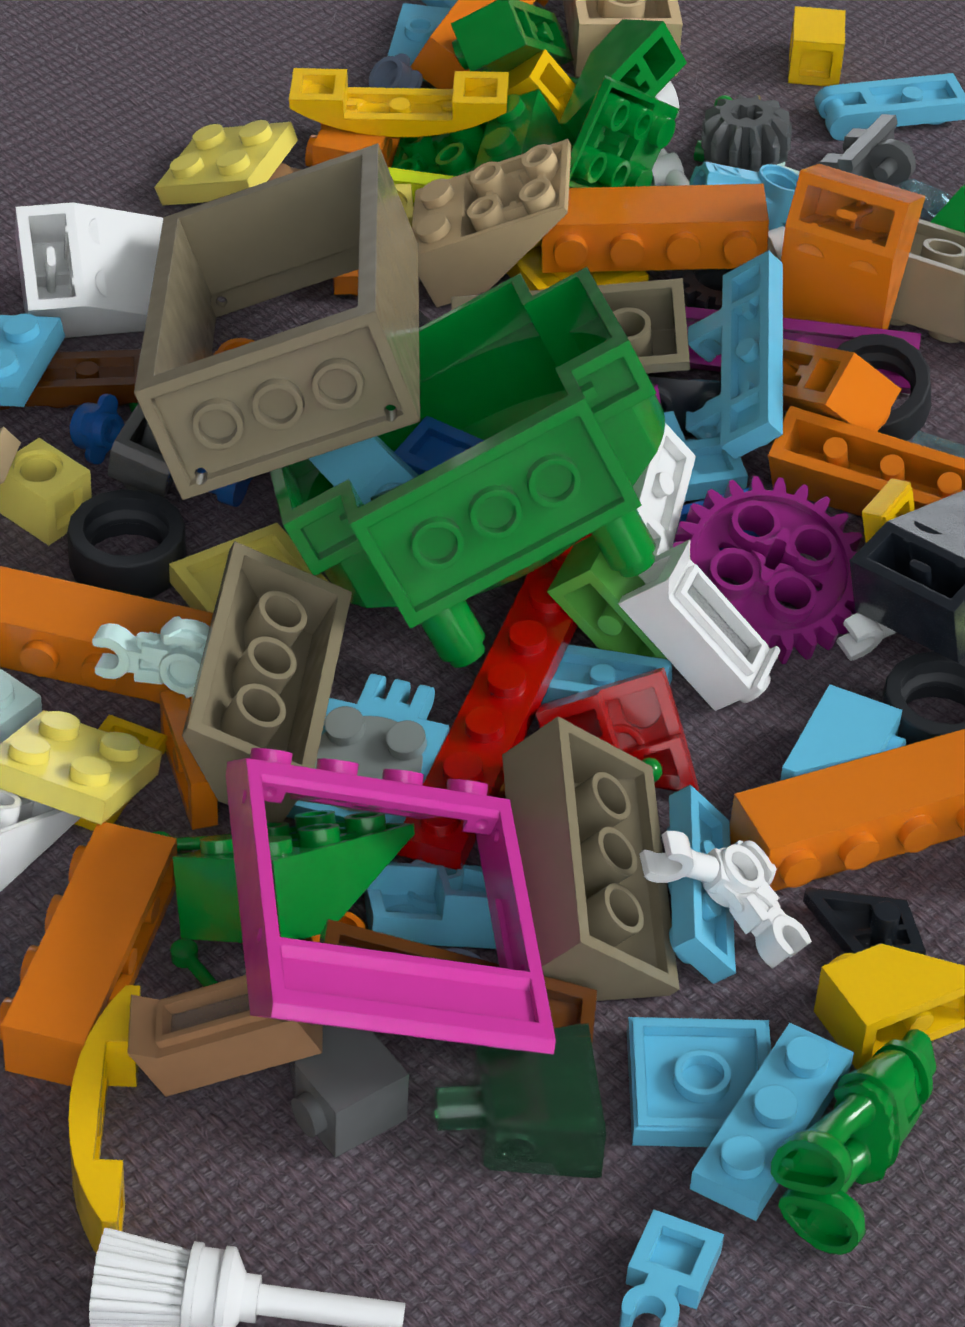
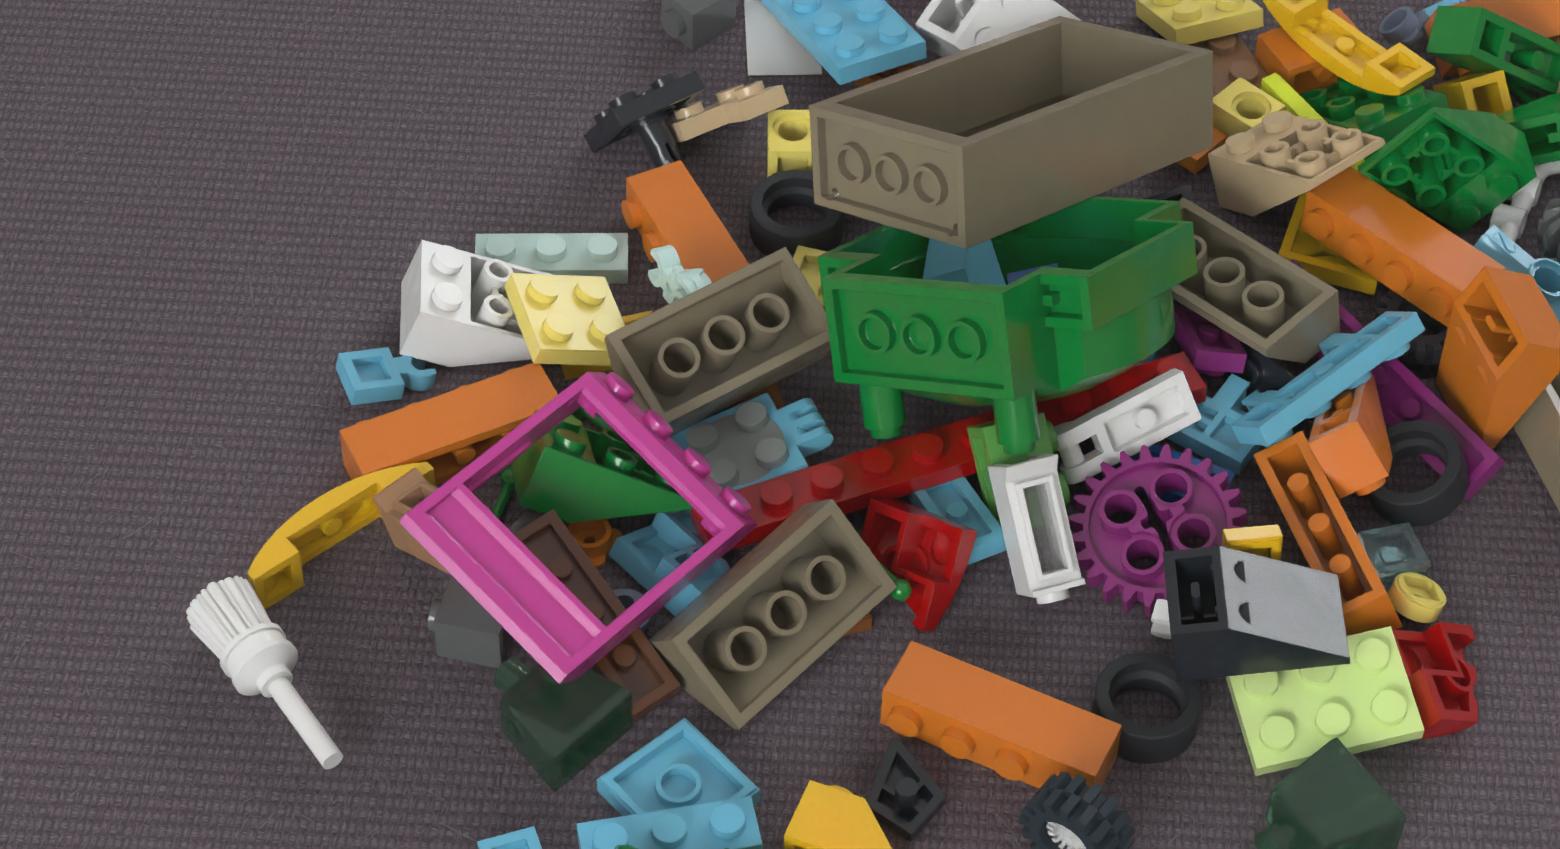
camera: 50 degrees right, 5 degrees up
(700, 927) = (831, 680): medium azure plate -> none
(735, 879) = (841, 693): white piece -> none
(843, 730) = (1044, 662): medium azure slope -> none

